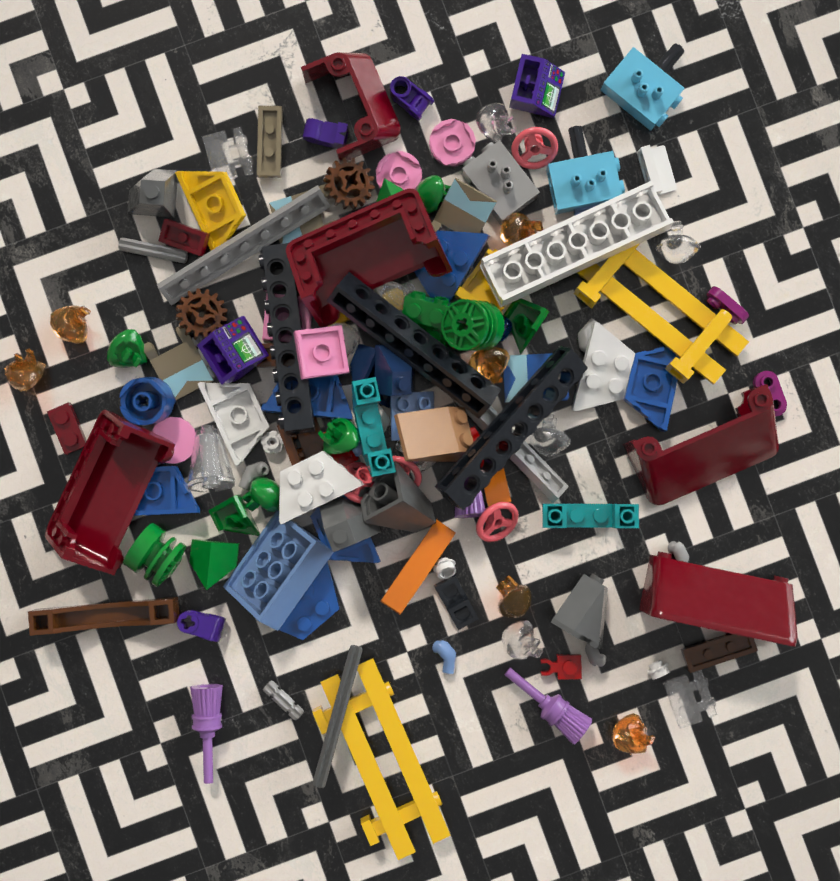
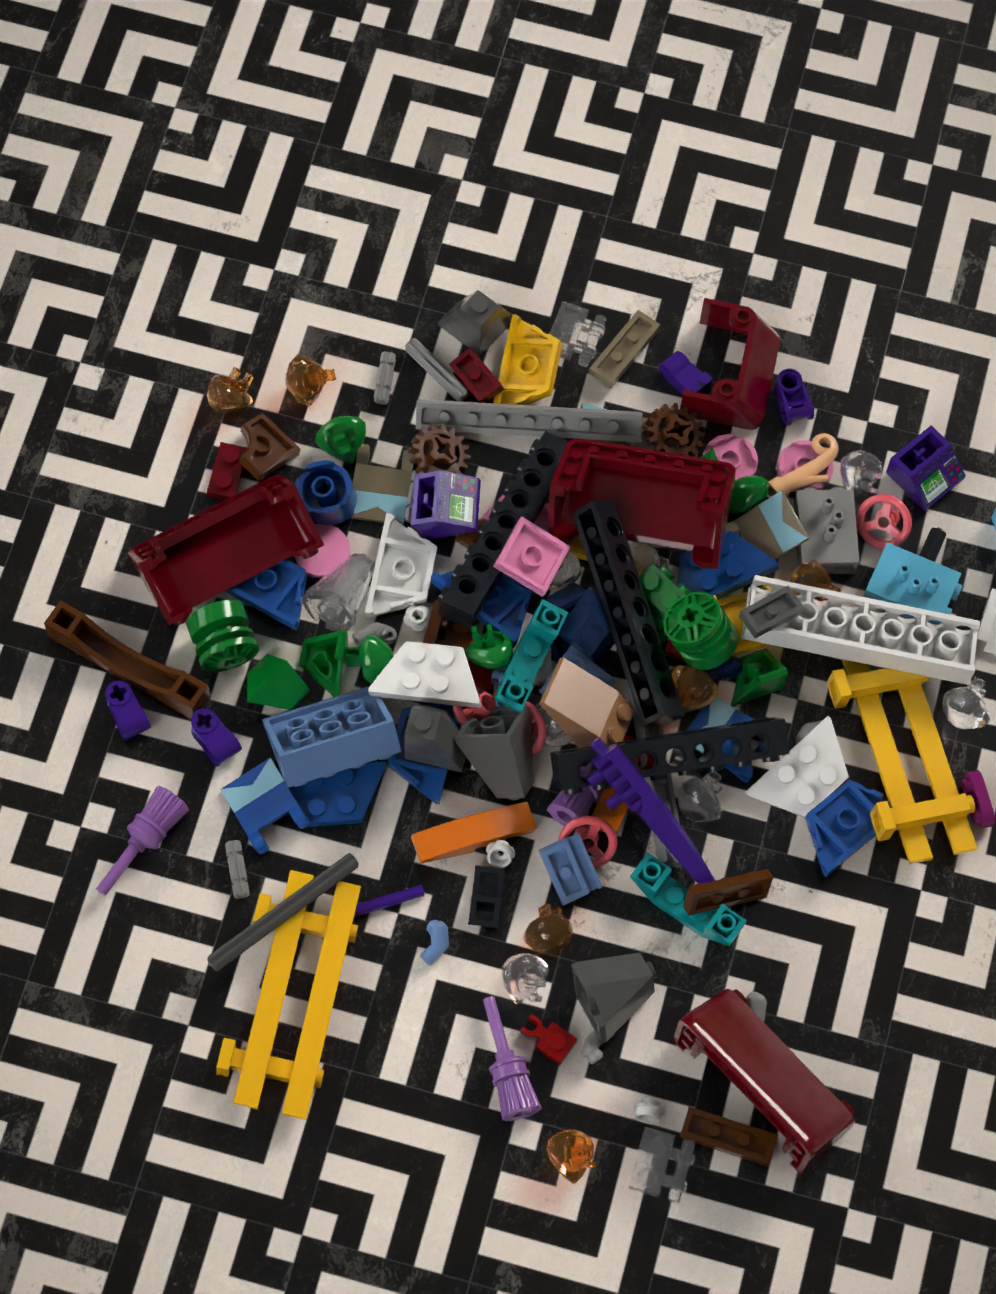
camera: 30 degrees right, 20 degrees down
(81, 392) = (267, 447): none -> reddish brown tile
(122, 282) = (384, 378): none -> light grey axle
(133, 649) = (126, 713): none -> dark purple piece
(266, 646) = (260, 800): none -> blue flag
(395, 649) = (389, 900): none -> dark purple bar
(459, 149) = (808, 472): none -> light nougat plant
(498, 548) = (570, 868): none -> medium blue plate
(512, 476) = (640, 797): none -> dark purple piece
(514, 281) = (771, 612): none -> dark grey plate
(610, 491) = (728, 891): none -> reddish brown plate
(708, 456) = (857, 921): dark red windscreen -> none
(775, 389) = (966, 917): magenta plate -> none

